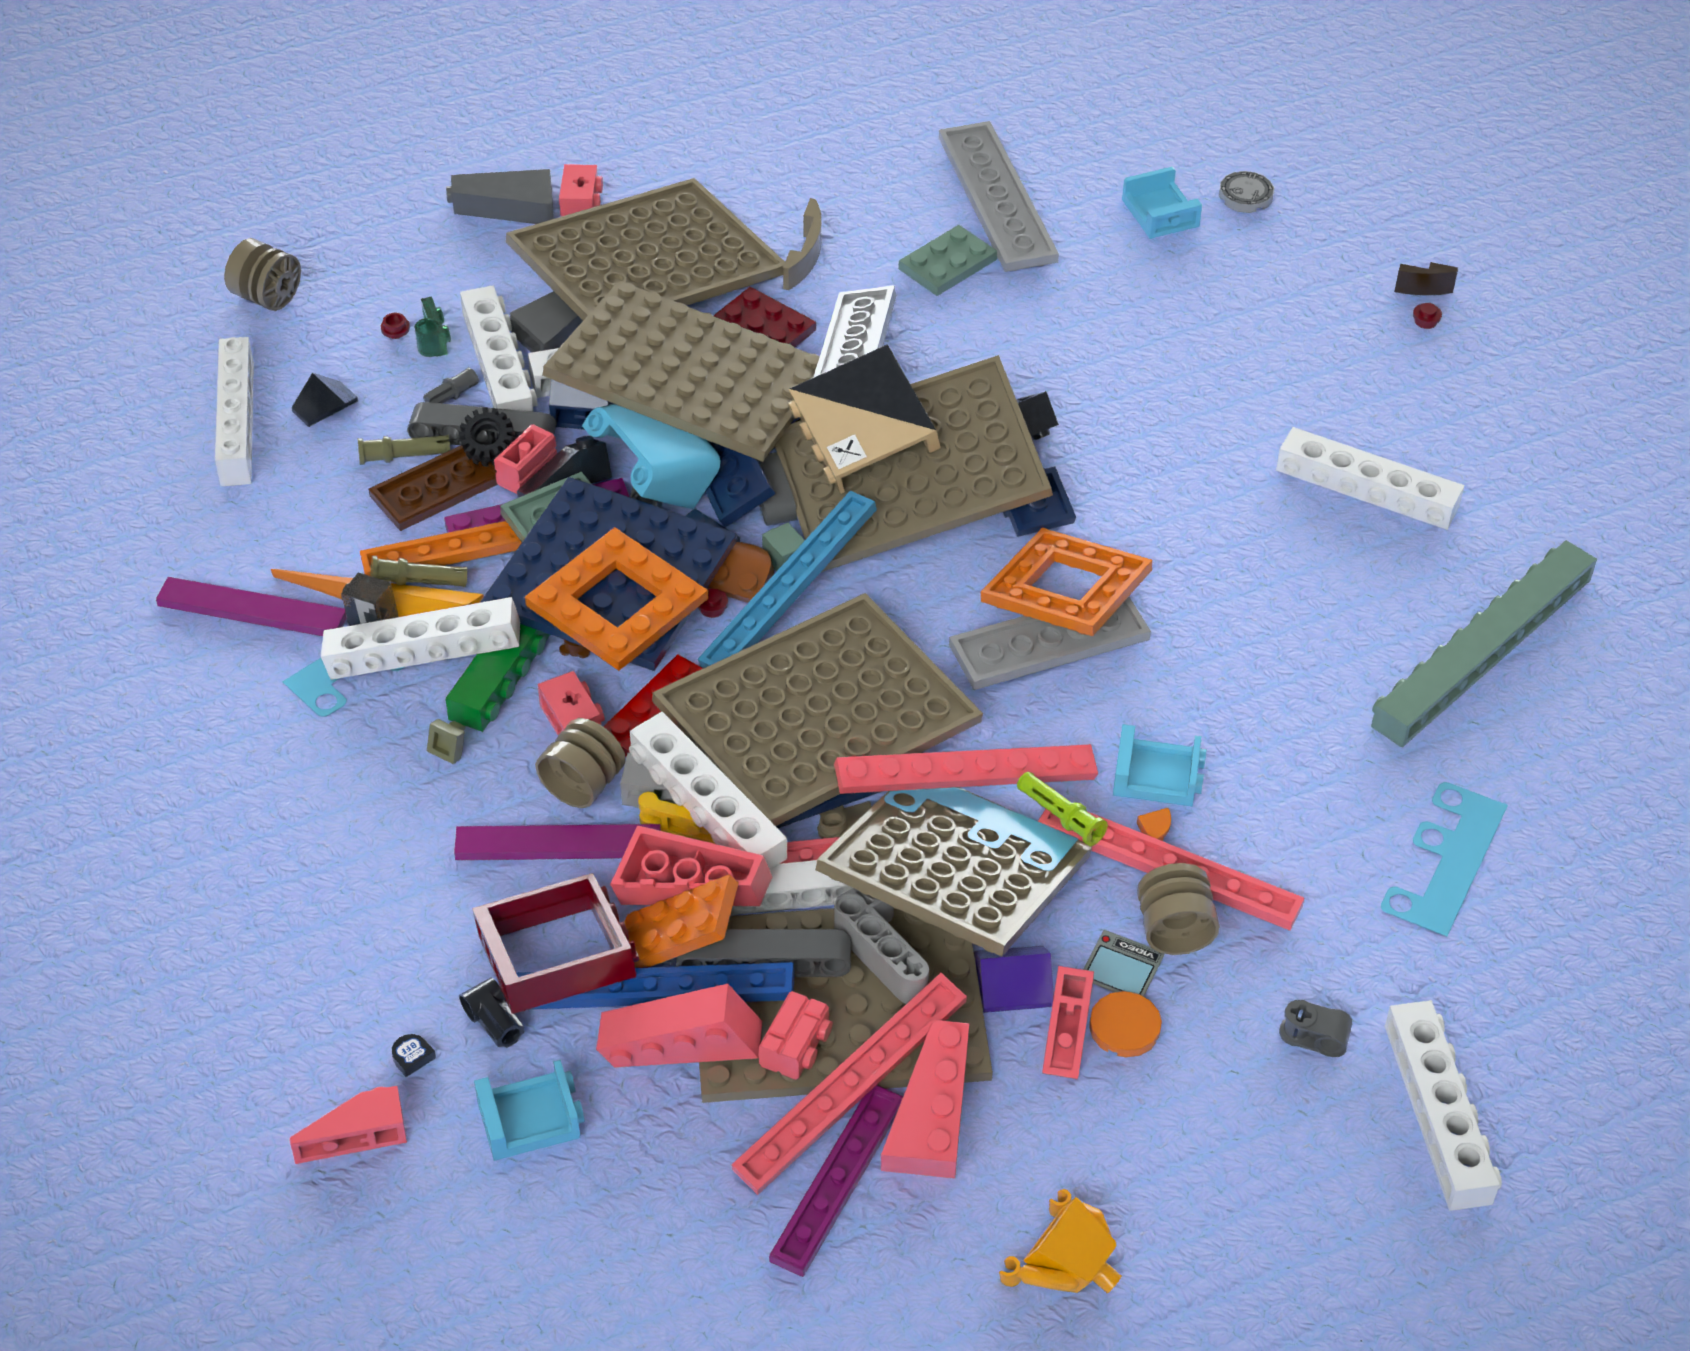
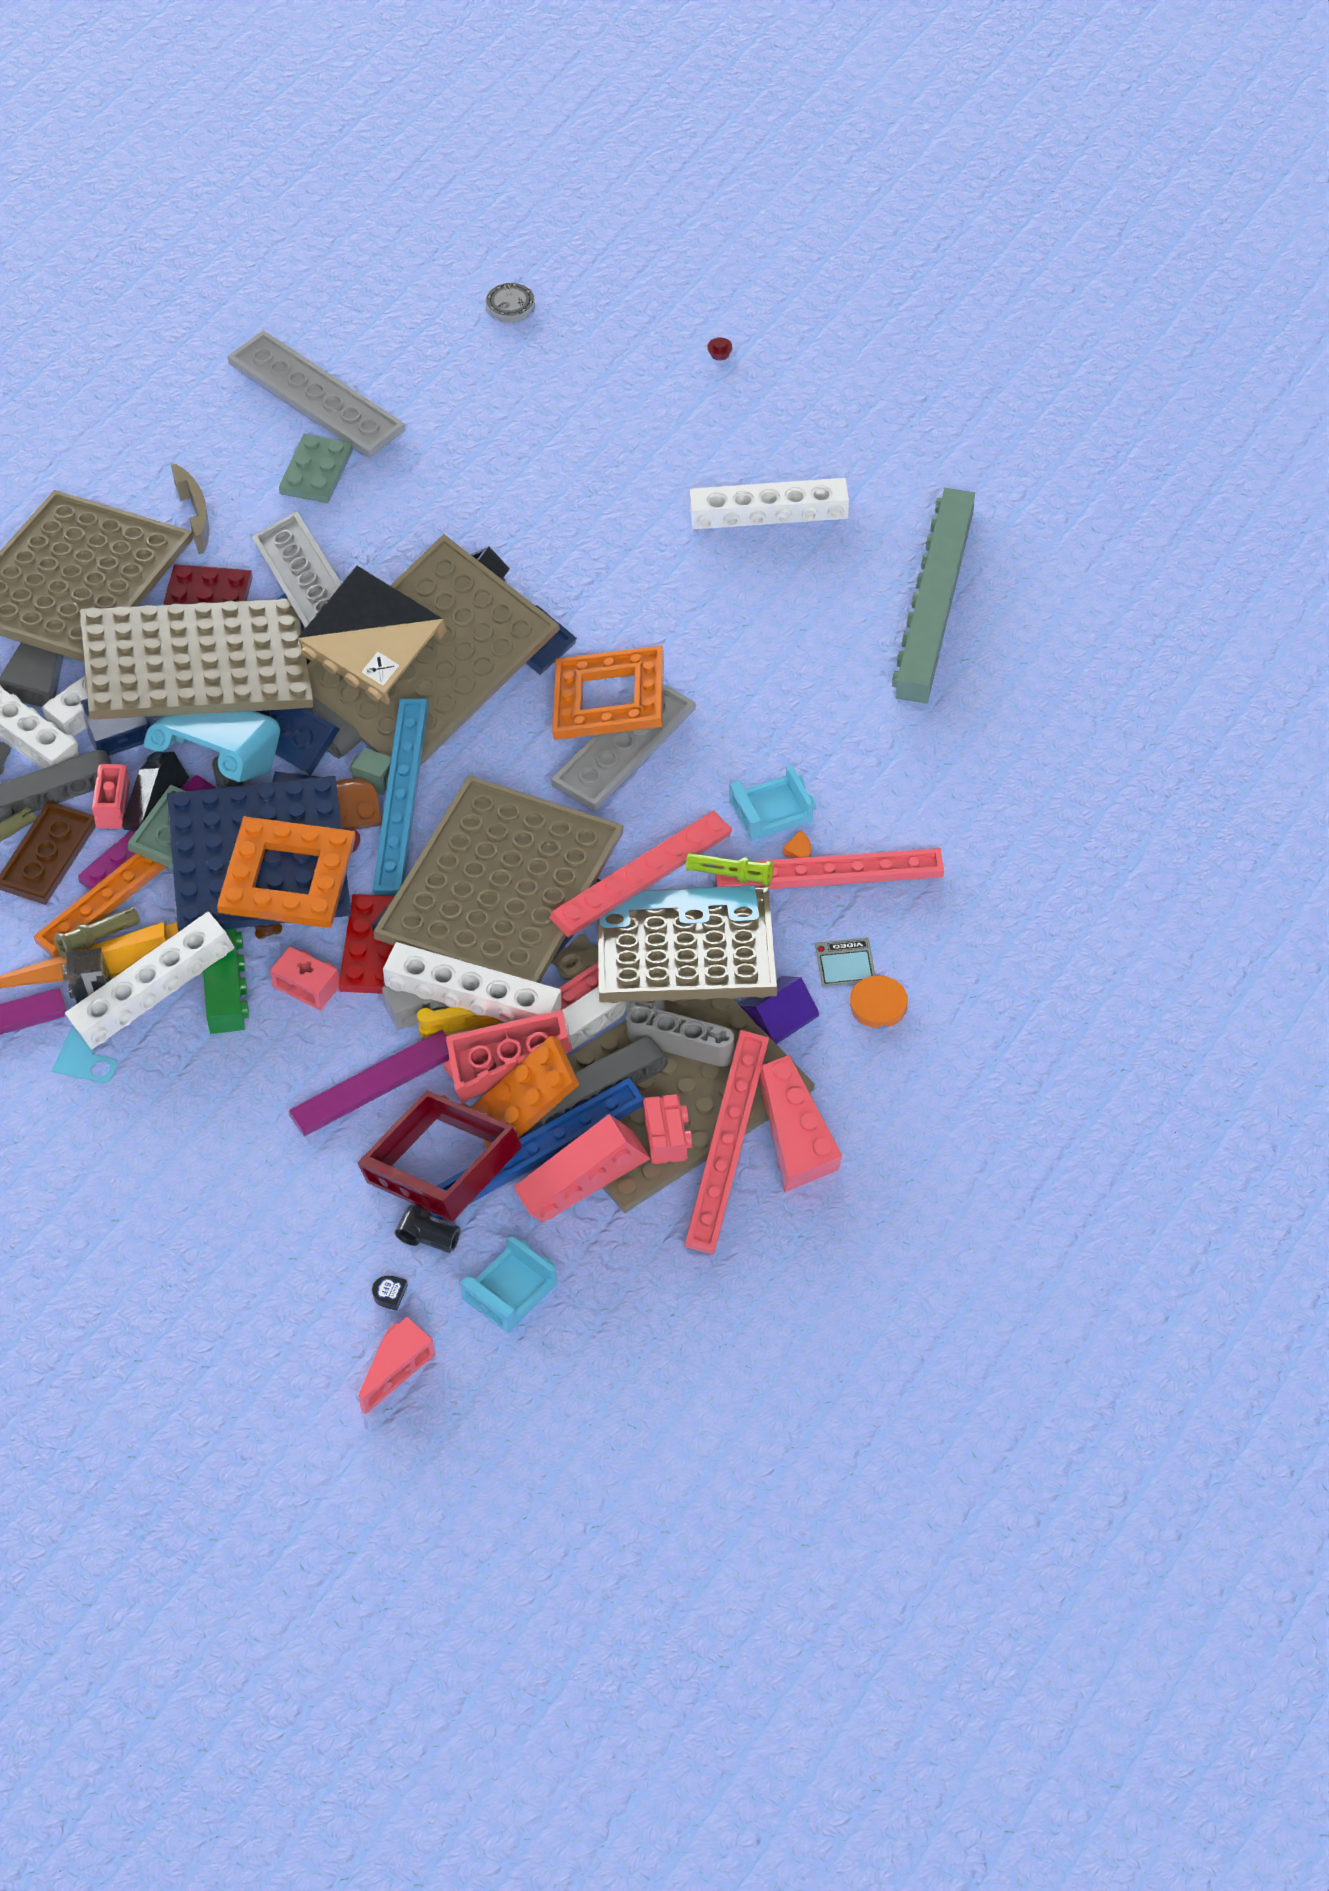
camera: 30 degrees left, 5 degrees up
(446, 740) = (228, 1049): olive tile -> none
(479, 423) = (68, 808): black tyre -> none
(580, 763) = (352, 1013): dark tan wheel -> none
(835, 1181) = (761, 1215): magenta tile -> none
(1068, 1022) = (841, 1019): coral slope -> none
(1069, 1250) = (955, 1174): light orange torso -> none
(1160, 203) = (451, 344): medium azure panel -> none
(1178, 909) = (864, 900): dark tan wheel -> none
(1319, 1028) = (1013, 936): dark grey piece -> none
(1421, 281) = (696, 322): dark brown slope -> none
(1461, 858) = (1021, 762): medium azure piece -> none
(1462, 1185) = (1125, 946): white brick -> none

